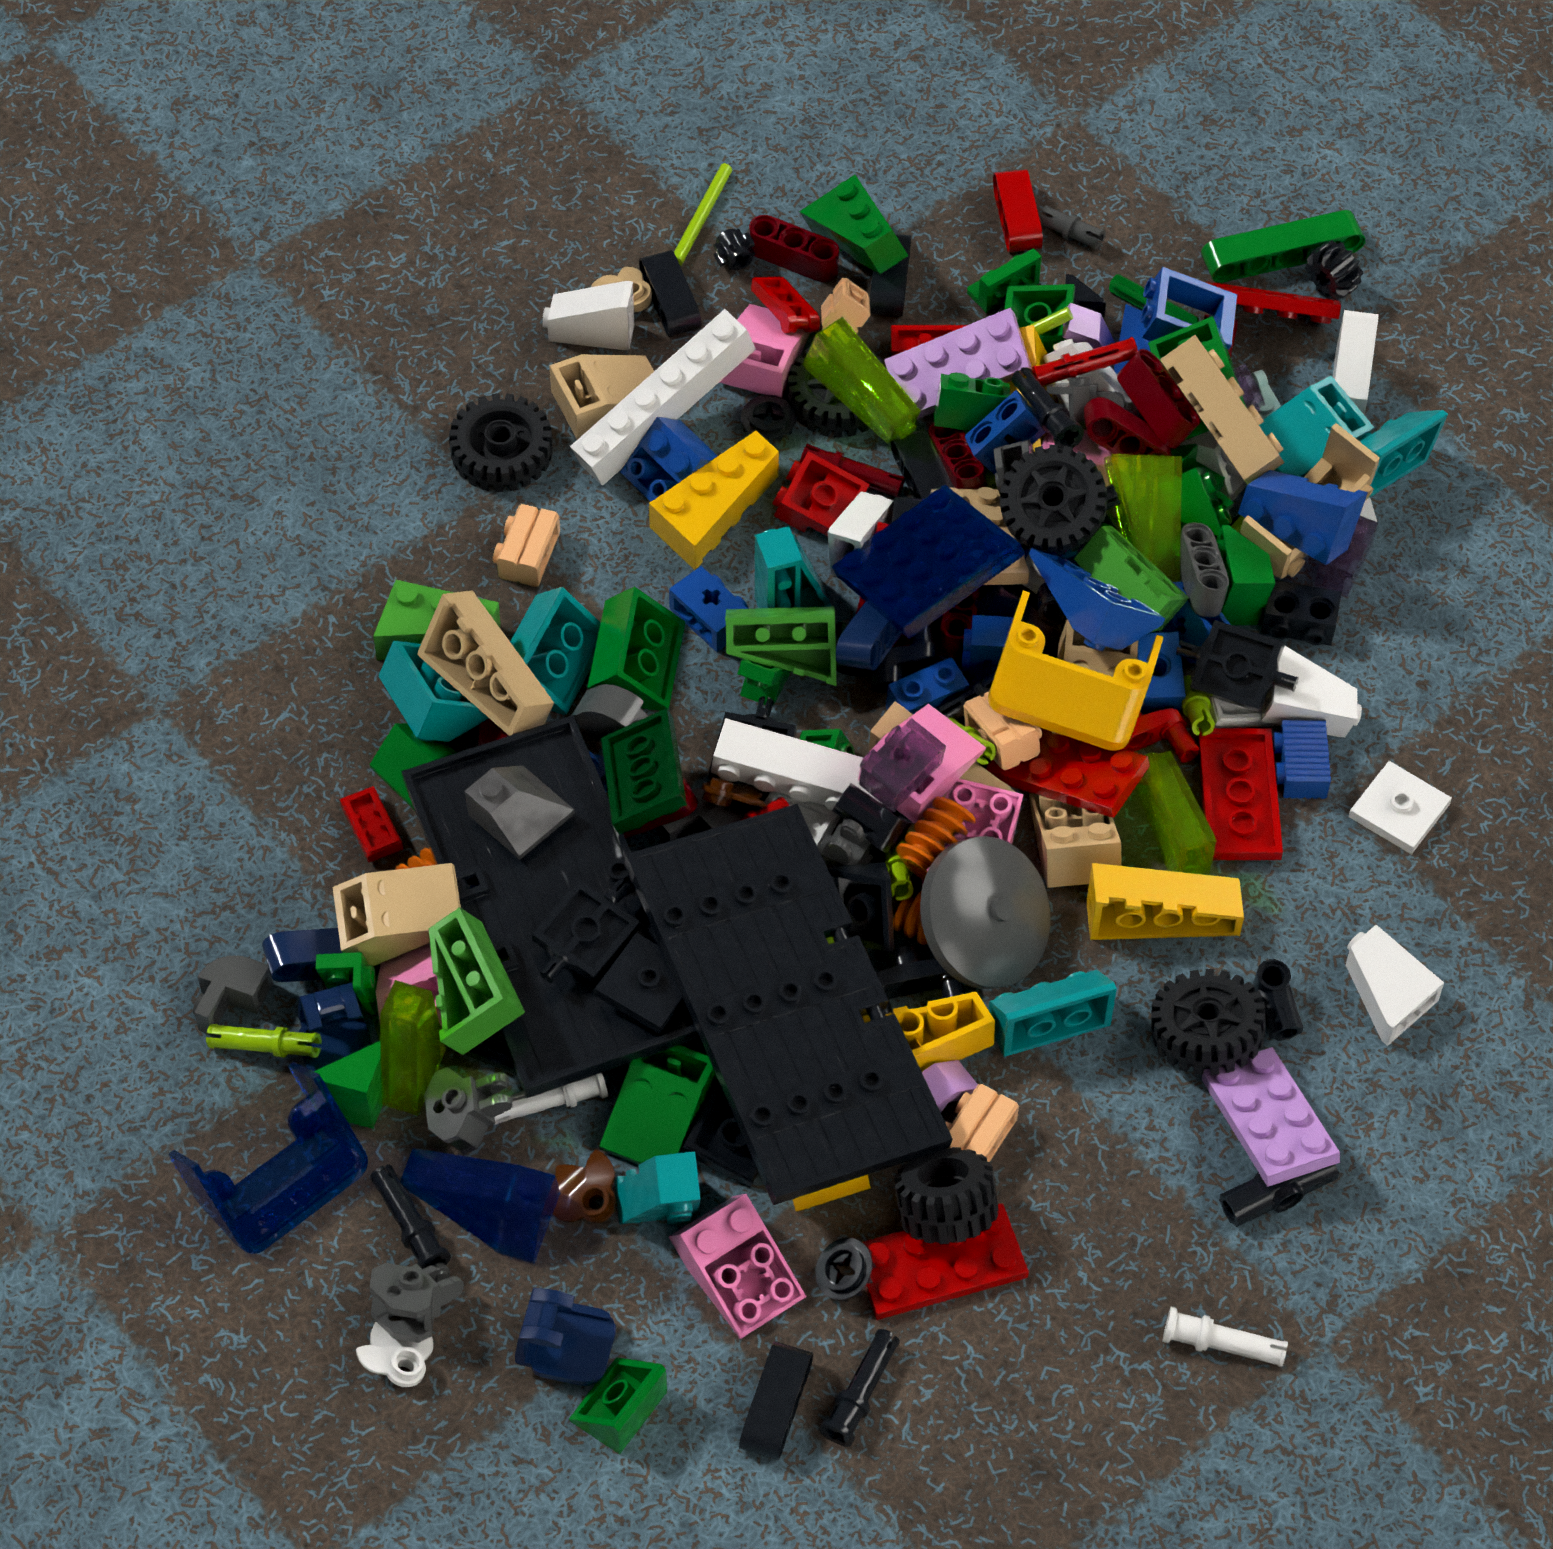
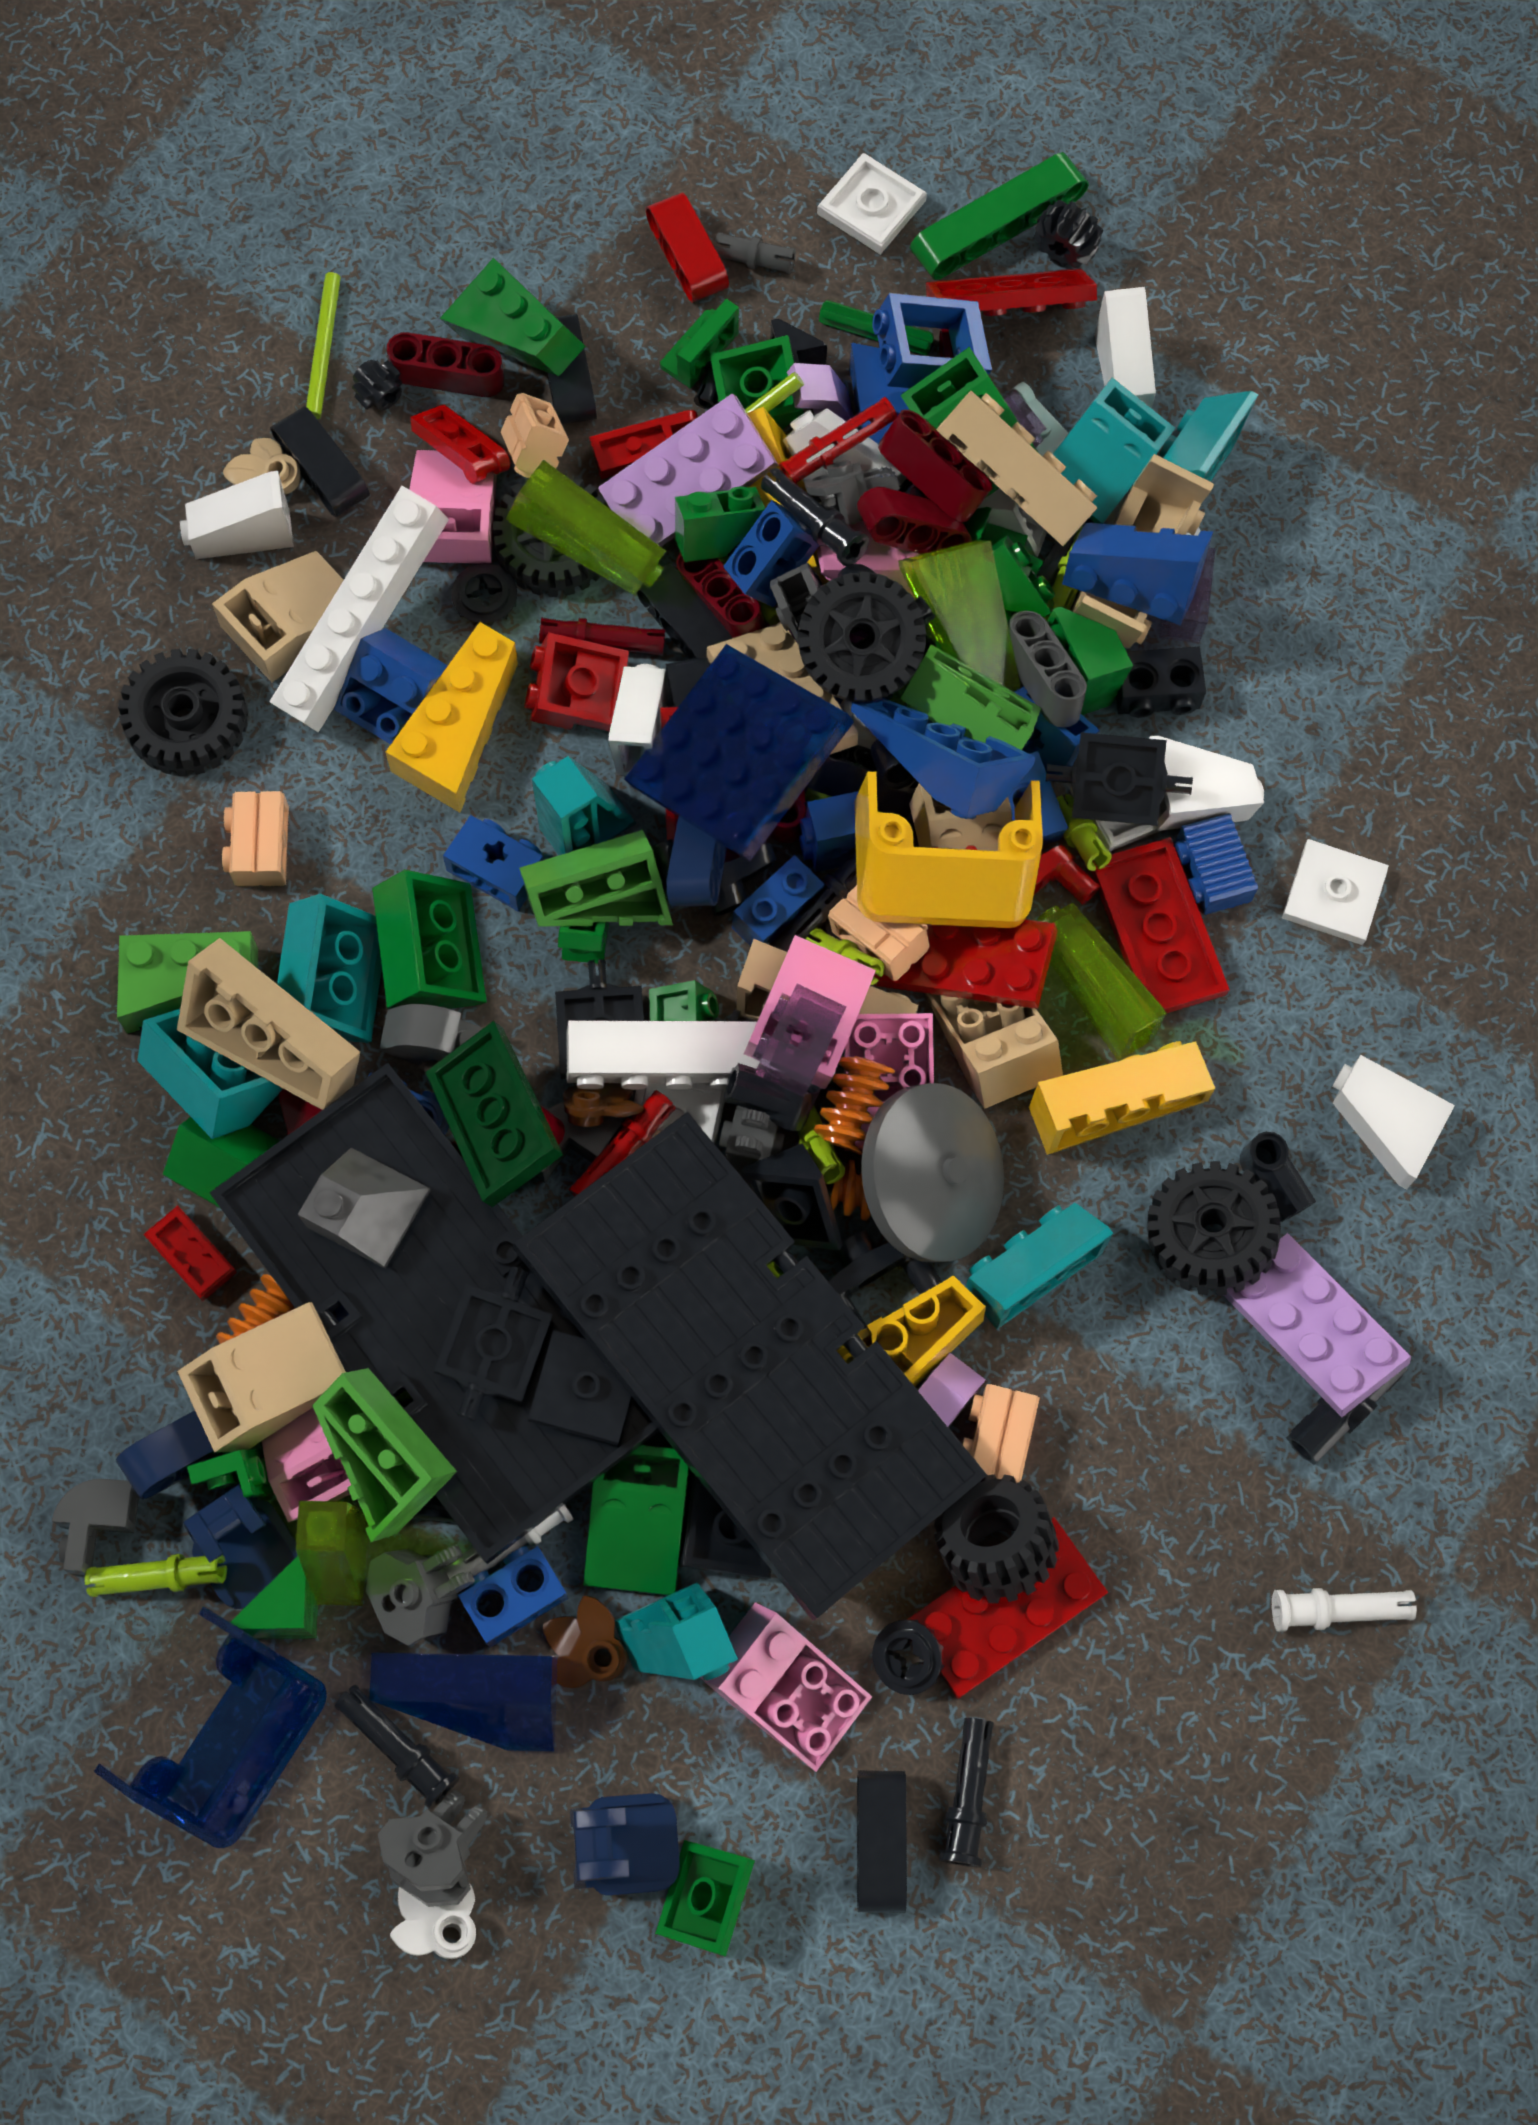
camera: 20 degrees left, 15 degrees up
(542, 1145) = (519, 1606): none -> blue brick
(1180, 214) = (871, 203): none -> white plate

